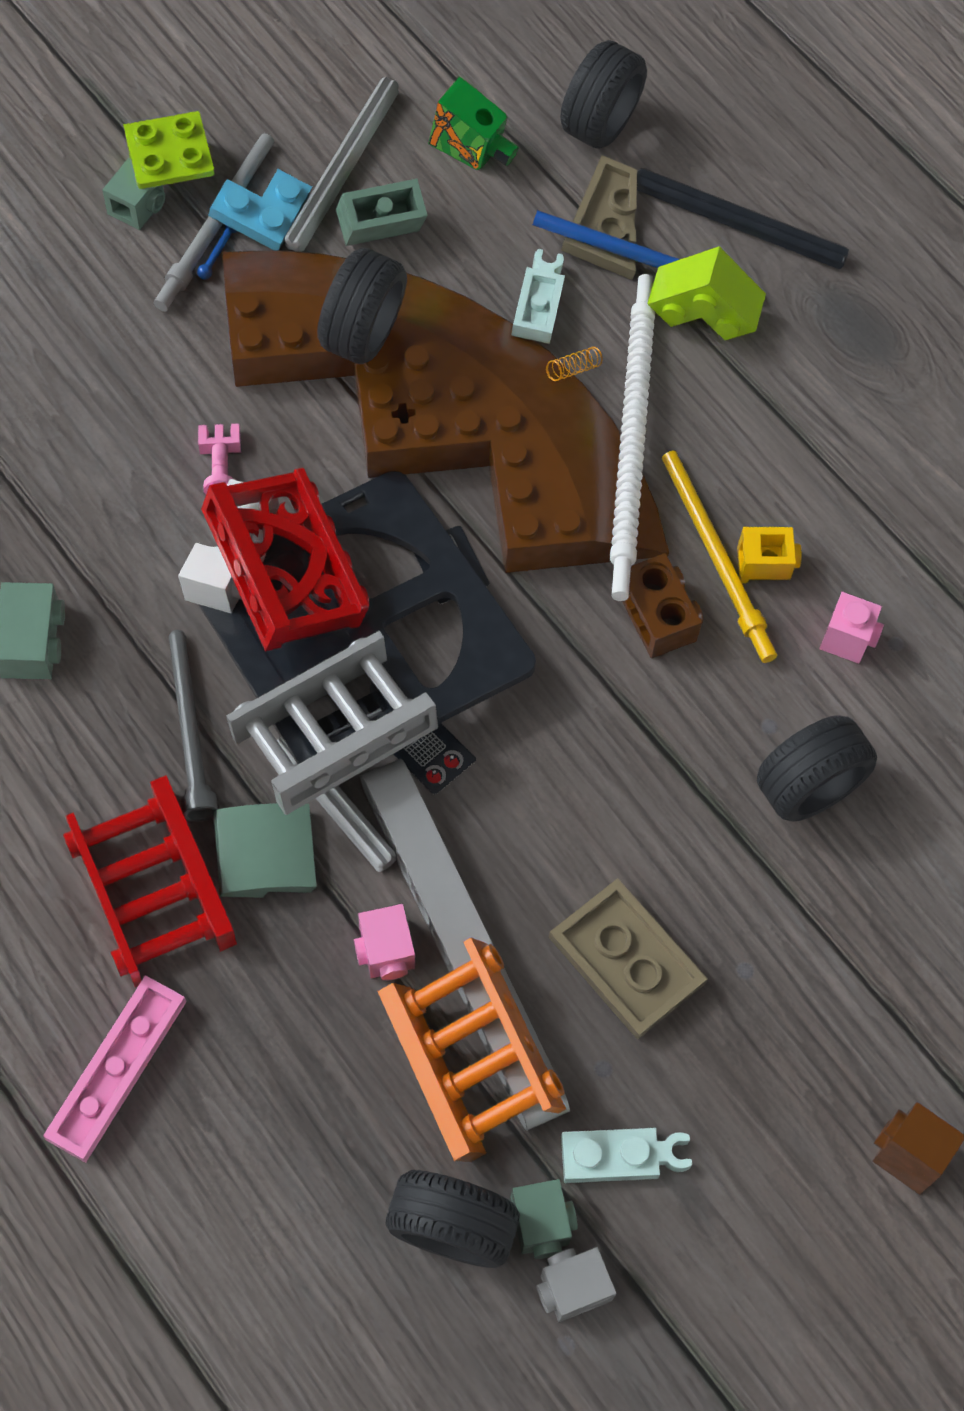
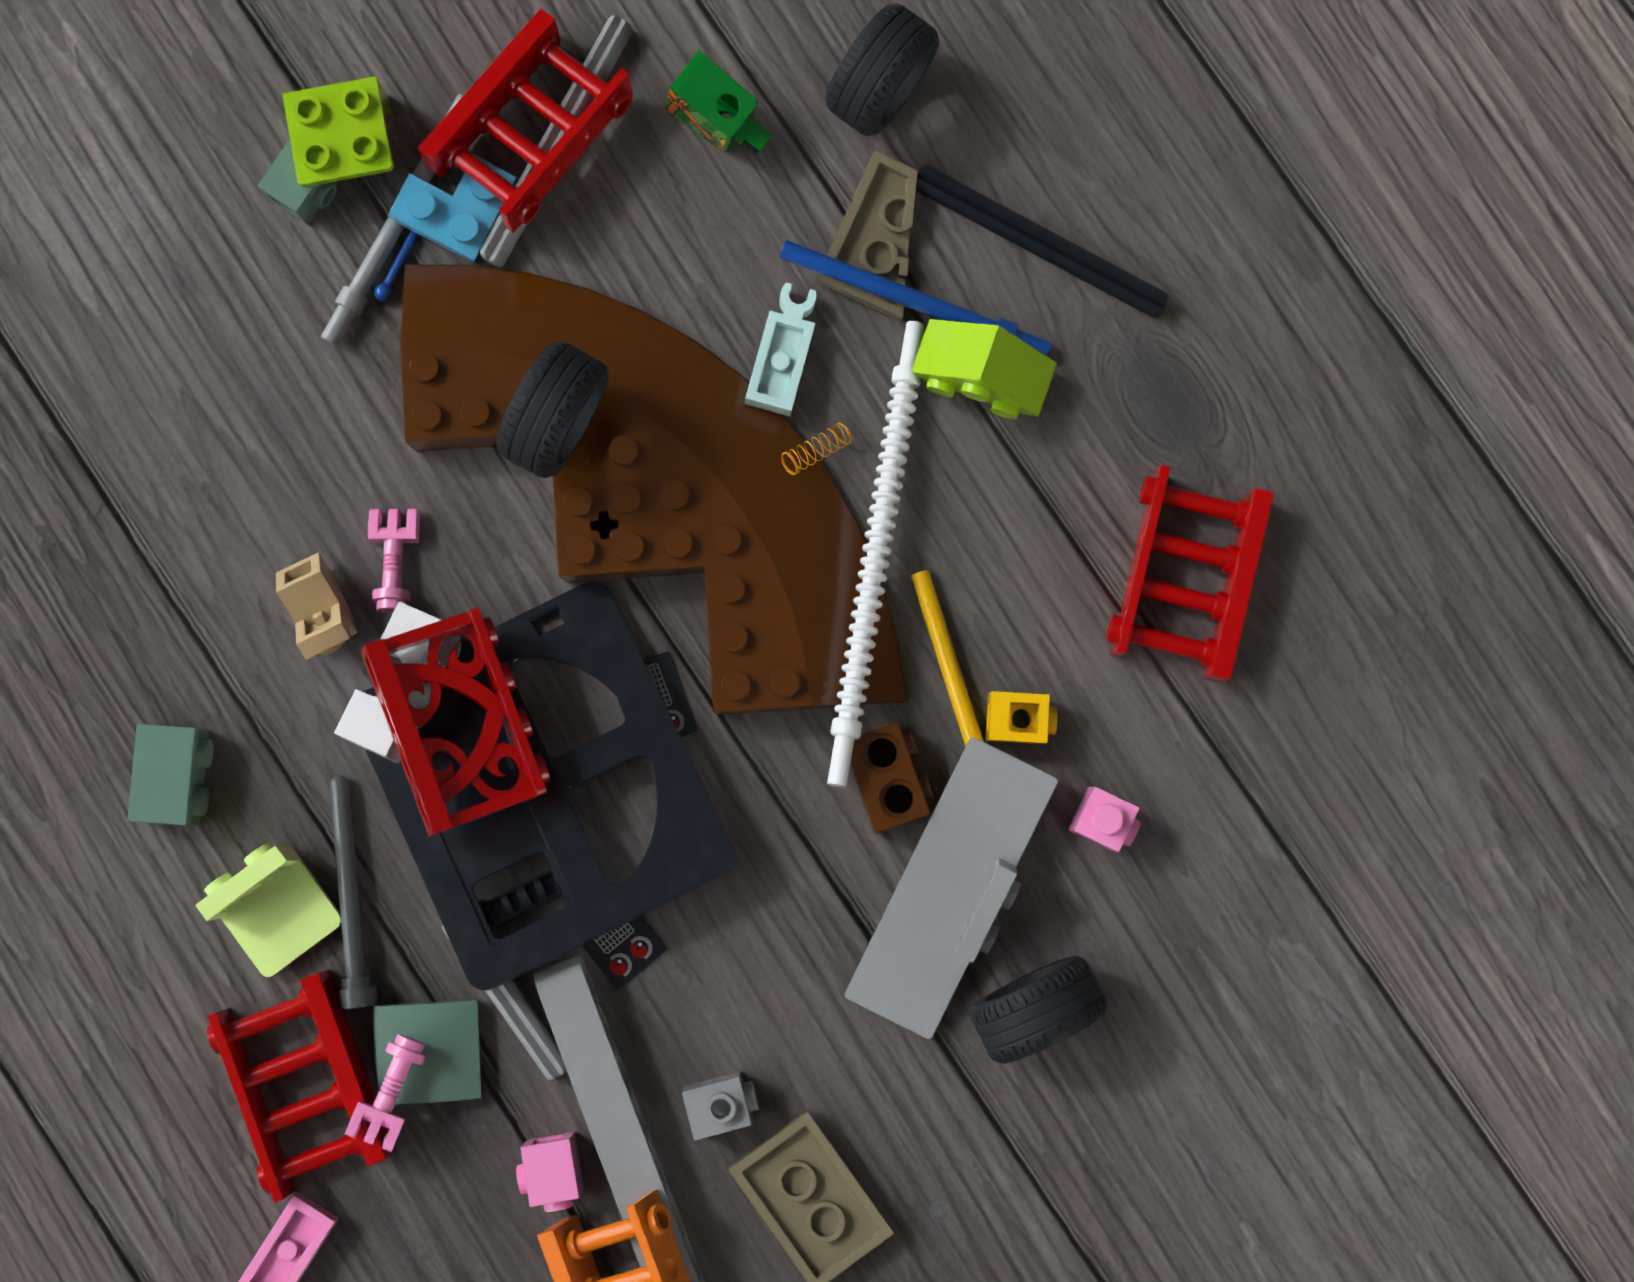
camera: 10 degrees right, 20 degrees up
(119, 732) = (272, 907): none -> yellowish green bracket
(156, 493) = (315, 606): none -> tan brick
(248, 838) = (380, 1113): none -> bright pink hinge
(304, 115) = (507, 79): none -> red fence
(334, 760) = (540, 956): light grey fence -> none
(381, 212) = (596, 228): sand green brick -> none
(536, 877) = (719, 1105): none -> light grey brick
(725, 689) = (952, 888): none -> light grey bracket
(934, 431) = (1236, 561): none -> red fence

